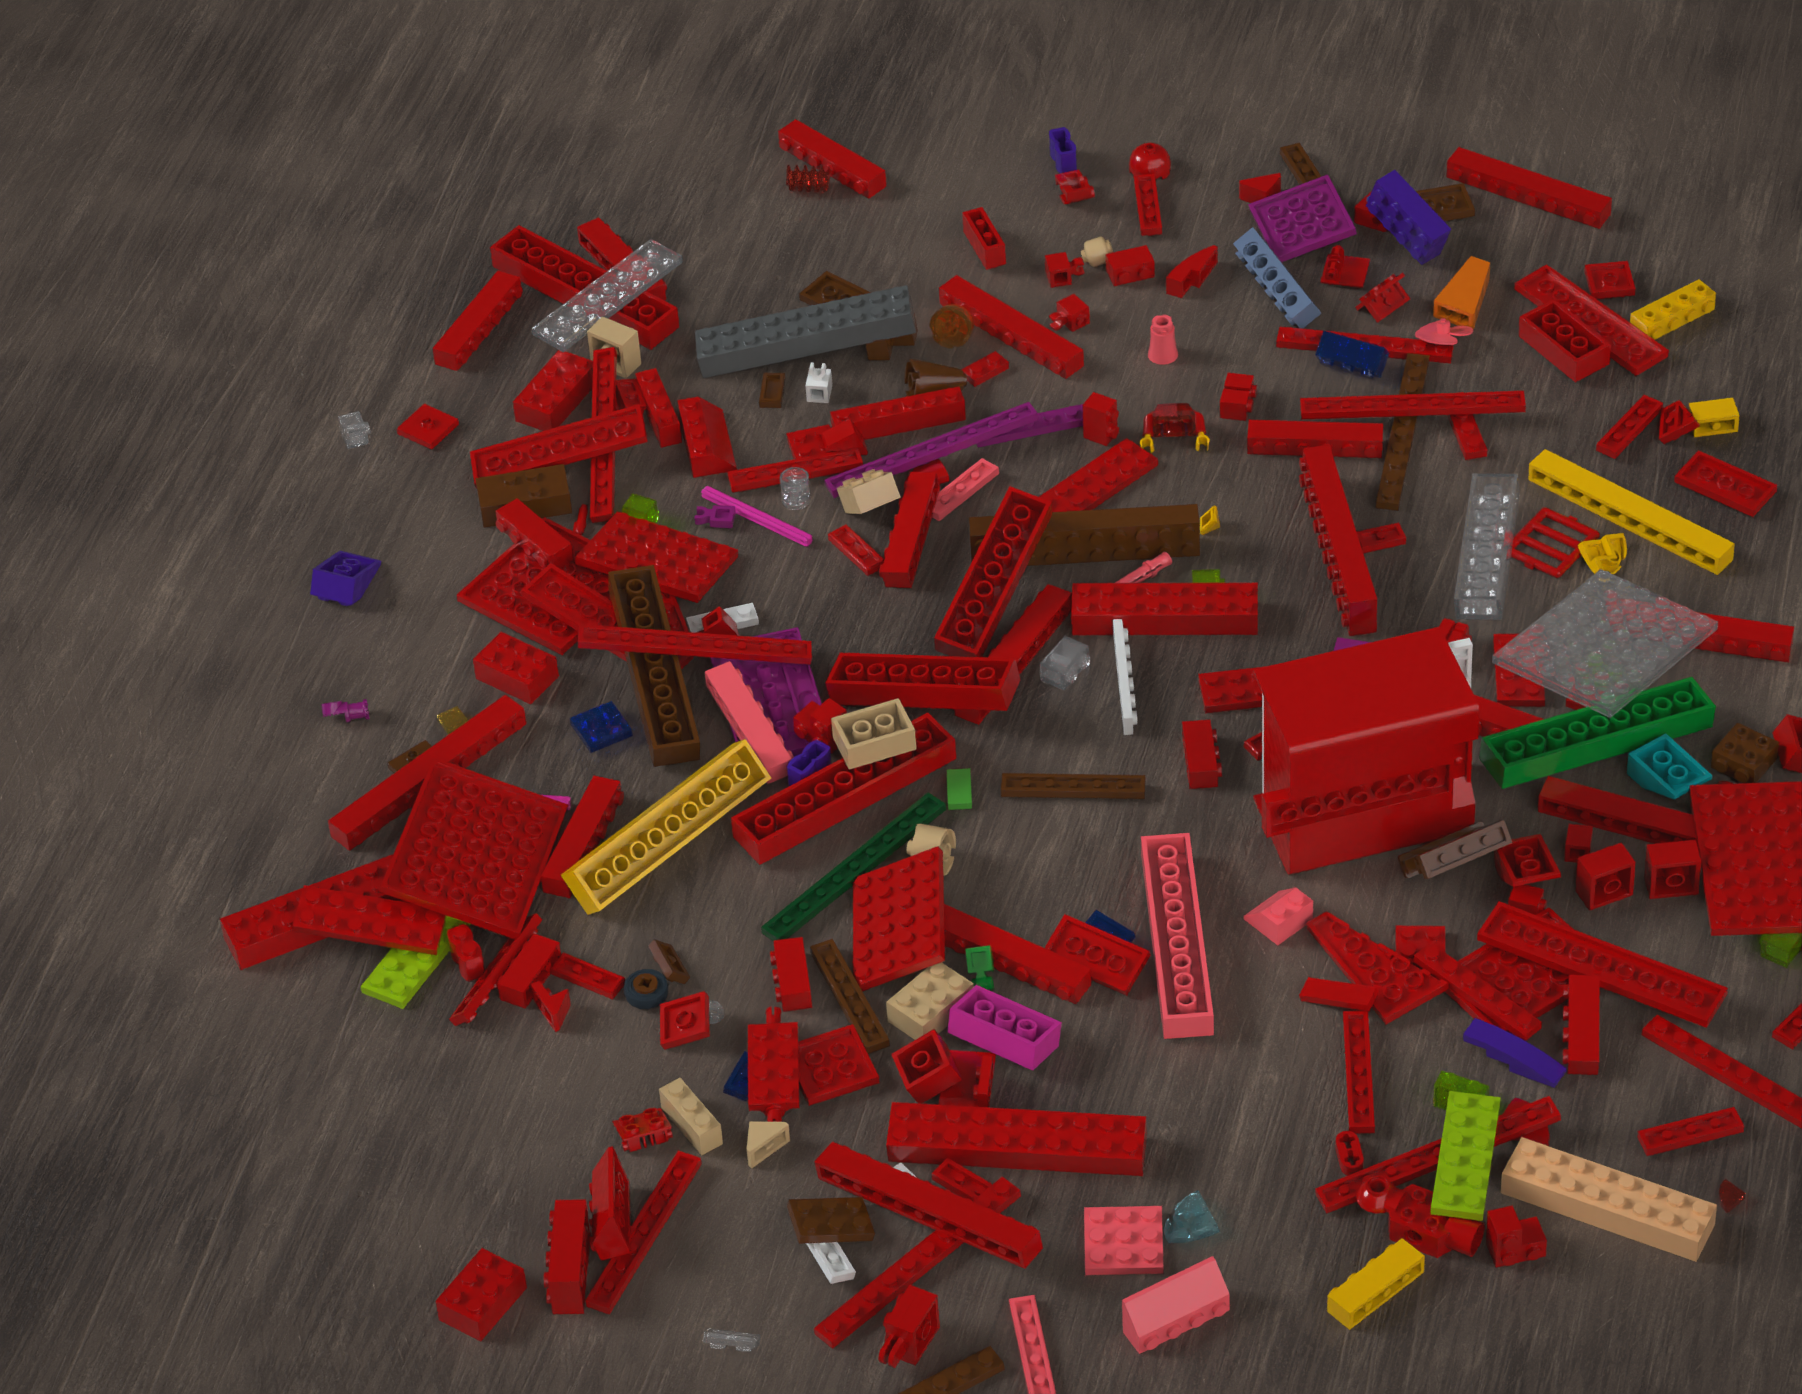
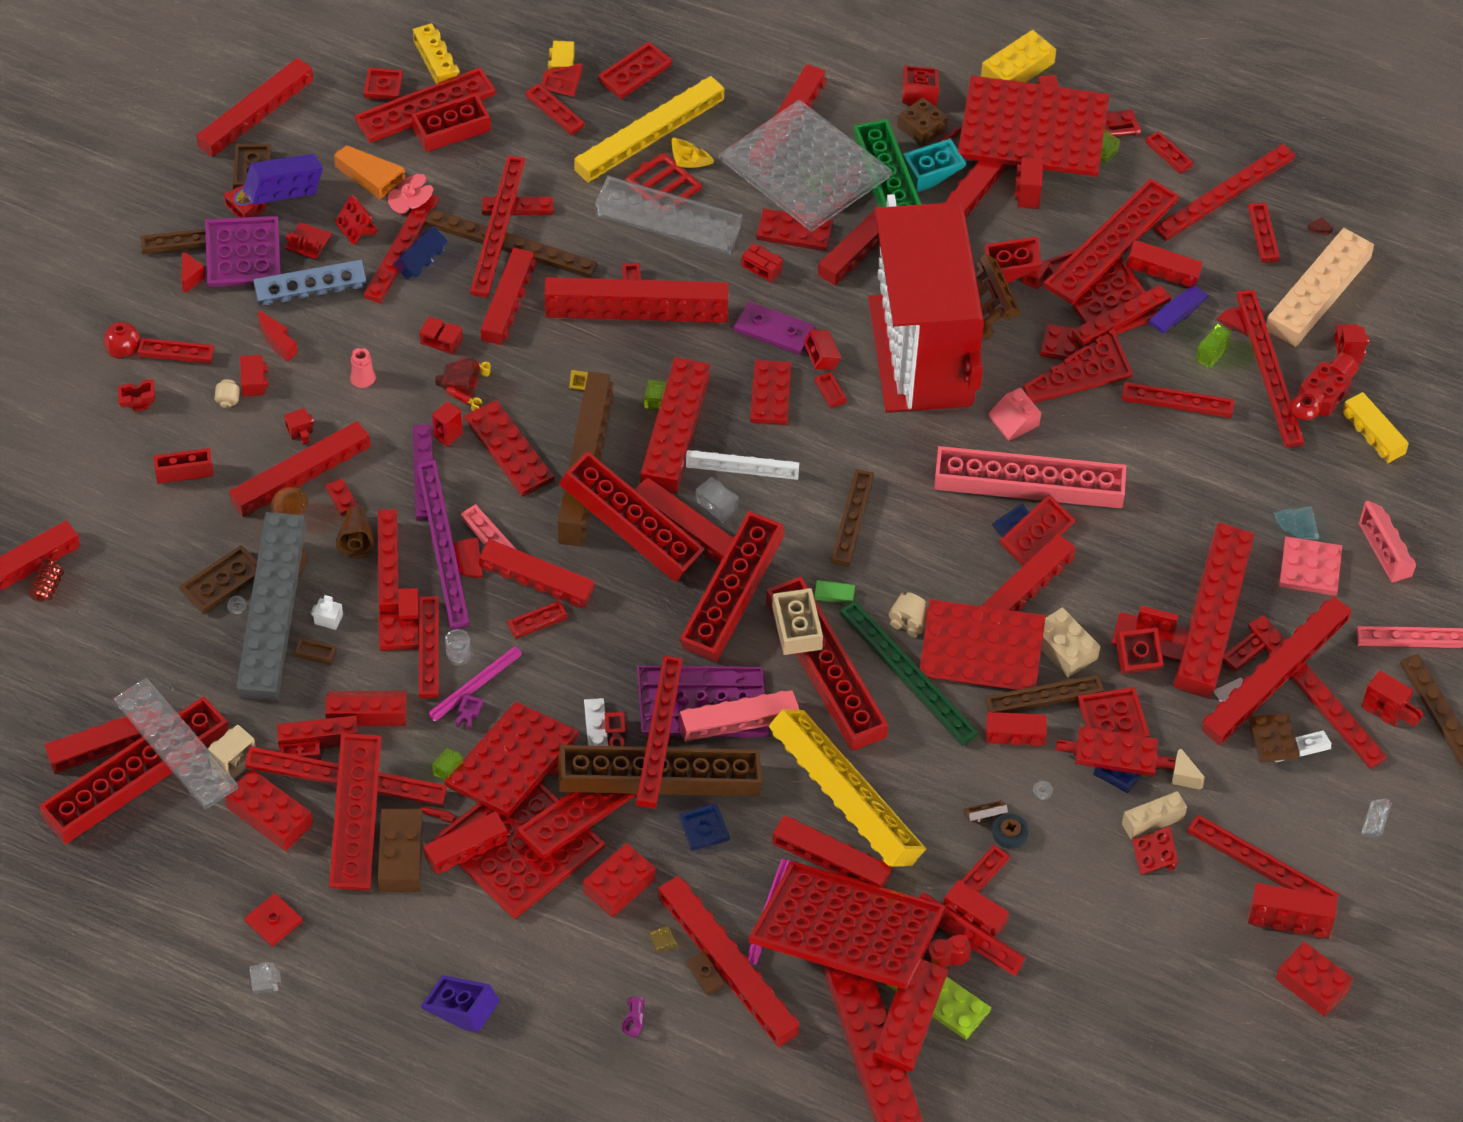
camera: 85 degrees left, 10 degrees up
(477, 320) = (145, 862): red brick -> none
(551, 1006) = (1020, 897): red slope -> none
(610, 1207) = (1242, 873): red slope -> none
(684, 1020) = (1055, 805): red plate -> none
(813, 758) = (791, 678): dark purple brick -> none
(815, 722) = (759, 665): red brick -> none
(868, 492) = (487, 593): tan brick -> none
(981, 961) = (1037, 602): green plate -> none
(1004, 1027) = (1107, 596): dark pink brick -> none
(1060, 269) = (238, 423): red brick -> none
(1062, 150) = (88, 392): dark purple brick -> none
(1148, 569) = (623, 428): coral pin -> none
(1201, 754) = (839, 432): red brick -> none
(1338, 994) = (1104, 395): red tile -> none
(1353, 1152) = (1250, 421): red beam -> none
(1465, 1156) = (1286, 346): lime plate -> none
(1578, 841) = (984, 231): red brick -> none
(1605, 876) = (1028, 218): red brick -> none

